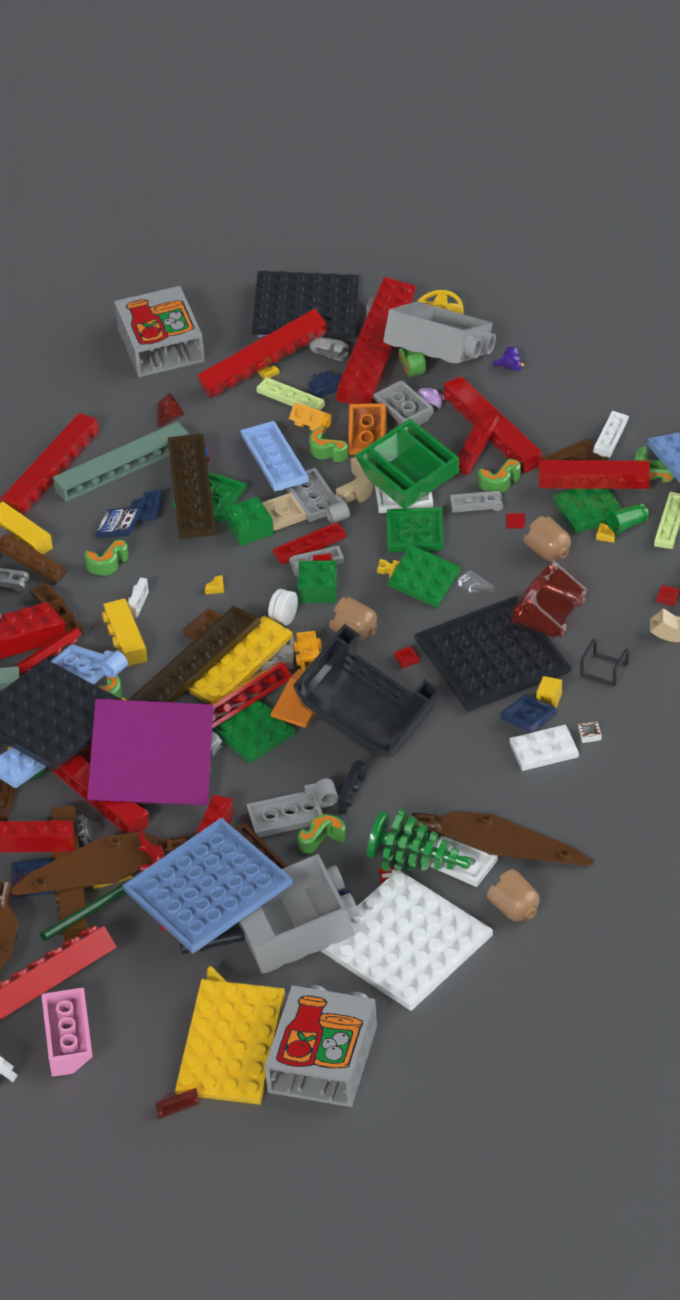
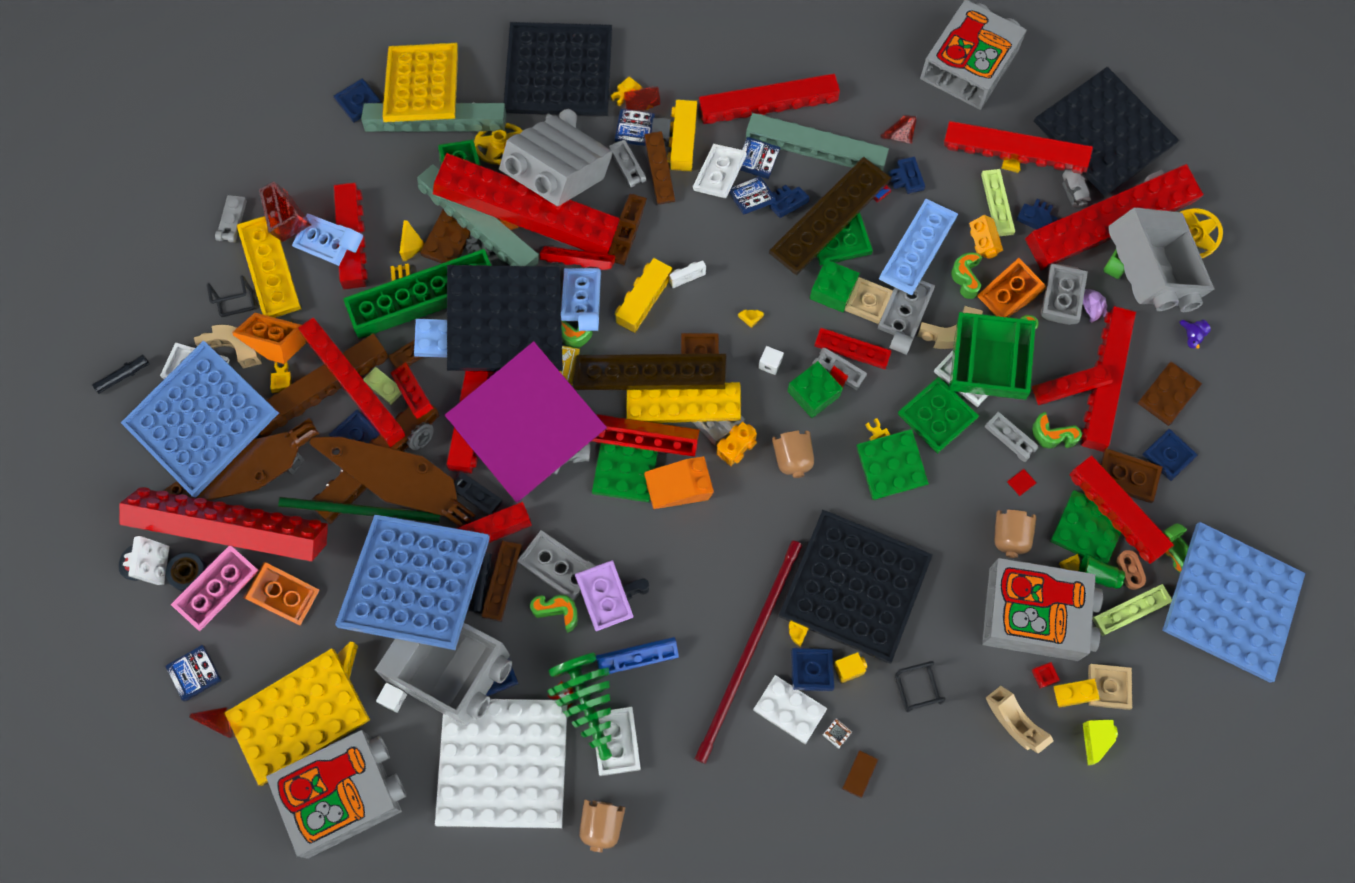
camera: 45 degrees right, 25 degrees up
(27, 1048) = (178, 566): none -> wheel
(43, 807) = (411, 390): none -> red plate
(76, 527) = (719, 170): none -> white plate
(90, 502) = (759, 158): none -> tile
(108, 562) = (708, 222): bright green animal -> none
(114, 996) = (281, 593): none -> orange slope
(117, 1095) = (193, 673): none -> tile
(154, 852) = (433, 507): red piece -> none
(172, 827) = (477, 494): none -> black plate
(211, 428) = (907, 176): none -> dark blue hinge
(263, 592) = (770, 360): none -> white piece
(280, 973) = (391, 697): none -> white piece
(283, 607) = (762, 388): white head -> none
(343, 789) = (604, 595): none -> lavender tile
(361, 698) = (700, 537): black slope -> none
(406, 657) = (797, 520): red tile -> none
(414, 798) = (638, 655): none -> blue plate
(473, 583) = (921, 508): clear tile -> none
(490, 708) = (797, 633): none -> yellow tile
(500, 837) = (662, 754): reddish brown wing -> none
(520, 809) = (707, 744): none -> dark red piece
(539, 403) = (1169, 393): none -> reddish brown plate
(549, 601) = (942, 588): clear red windscreen -> none
(582, 428) = (1170, 453): none -> dark blue tile
(611, 434) = (1183, 482): white plate -> none
(620, 561) = (1041, 610): none -> brick
(632, 737) = (860, 774): none -> reddish brown tile
(651, 503) = (1133, 570): none -> nougat plate

